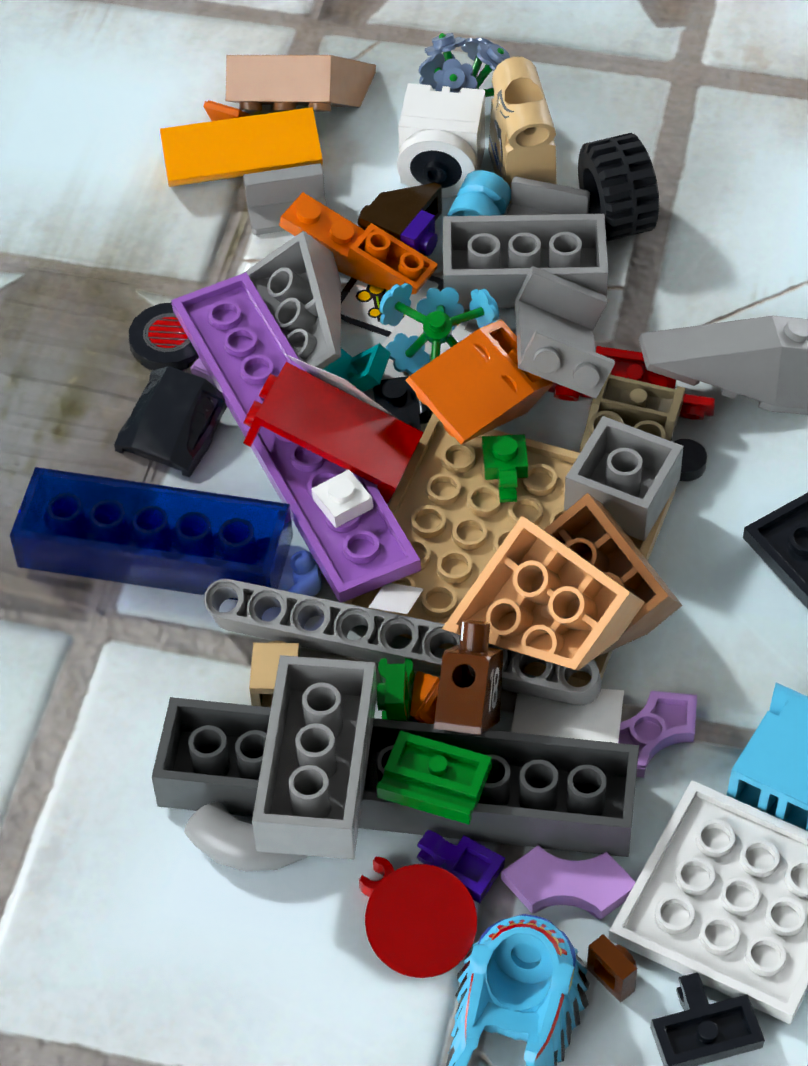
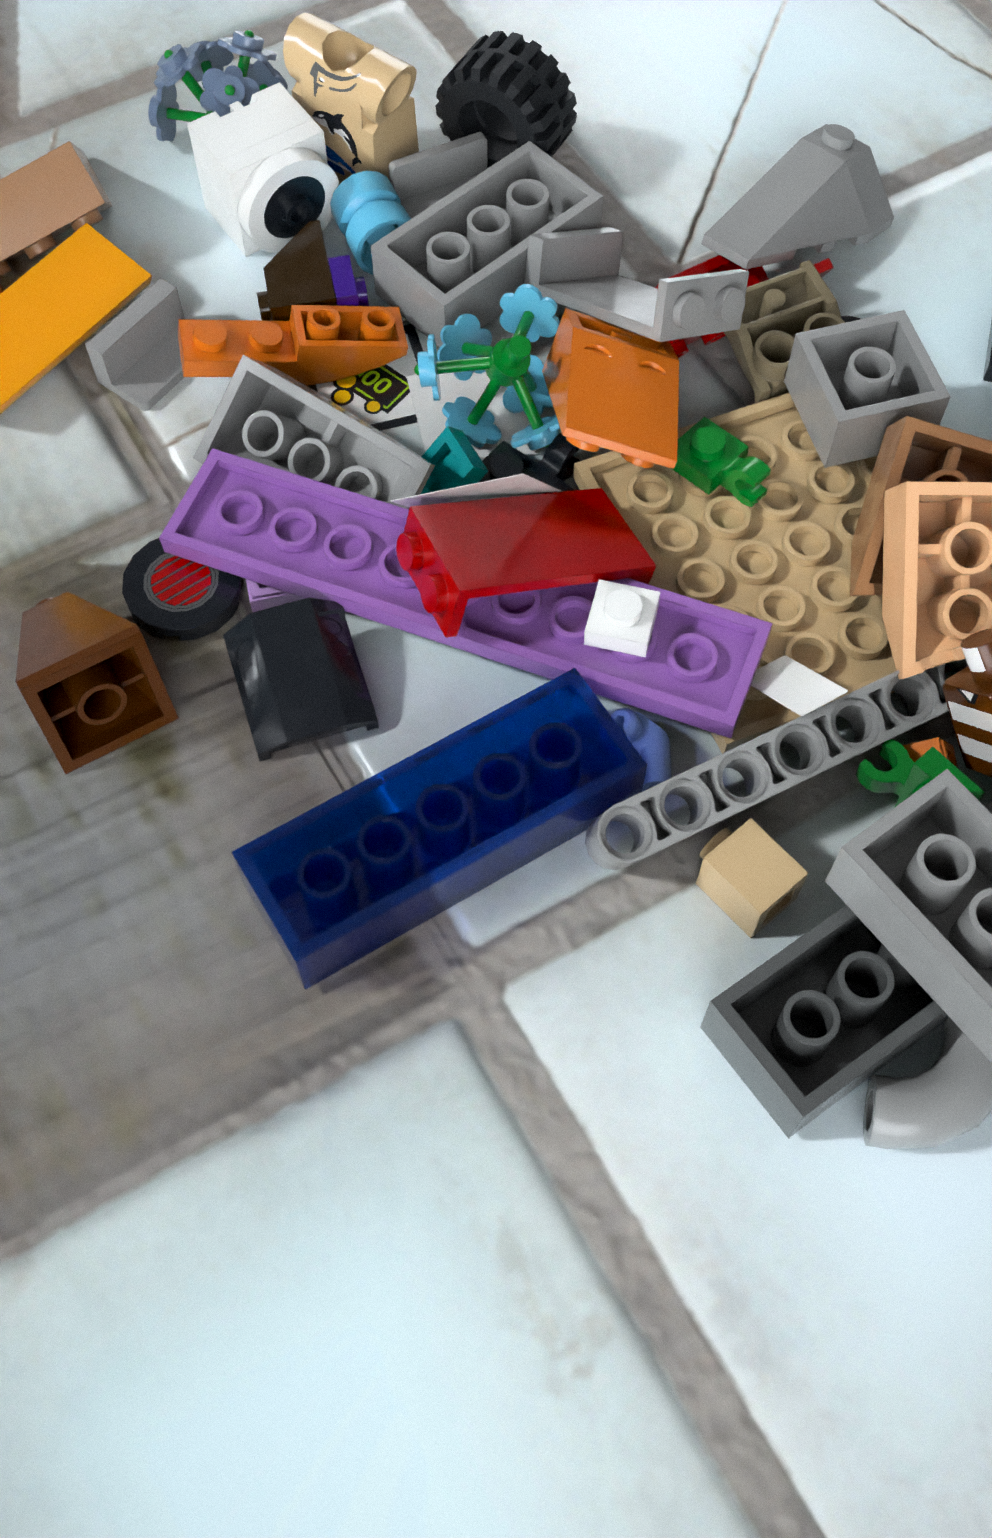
camera: 45 degrees left, 10 degrees up
(63, 347) = (88, 679): none -> reddish brown slope

